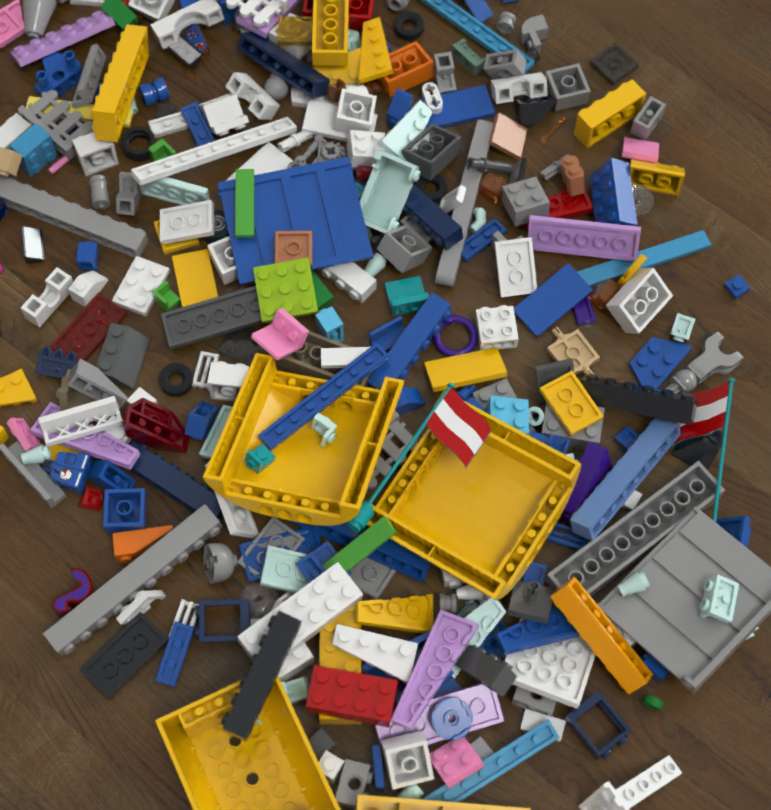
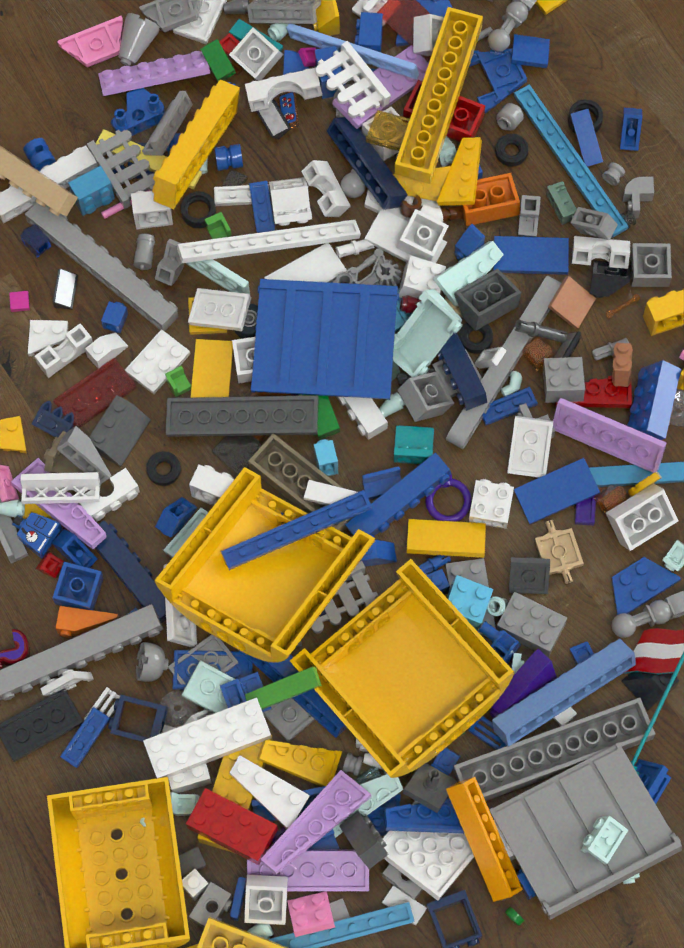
camera: 20 degrees right, 5 degrees up
(23, 287) = (45, 333): none -> white wing
(155, 426) = (129, 512): dark red wedge -> none
(202, 384) = (187, 480): white tile -> none
(244, 204) = (279, 309): bright green tile -> none
(259, 458) = (215, 575): teal bracket -> none
(262, 675) = (153, 784): black brick -> none
(282, 336) = (273, 457): bright pink bracket -> none
(287, 287) = (292, 410): lime plate -> none
(293, 245) = (313, 369): nougat tile -> none
(325, 427) = (289, 561): light aqua bracket -> none
(436, 97) = (512, 239): white beam -> none
(454, 426) = (408, 599): flag -> none
(459, 726) = (313, 883): plate -> none
(571, 403) = (534, 604): yellow tile -> none
(634, 584) = (530, 800): light aqua cone -> none
(641, 400) = (601, 619): black brick -> none

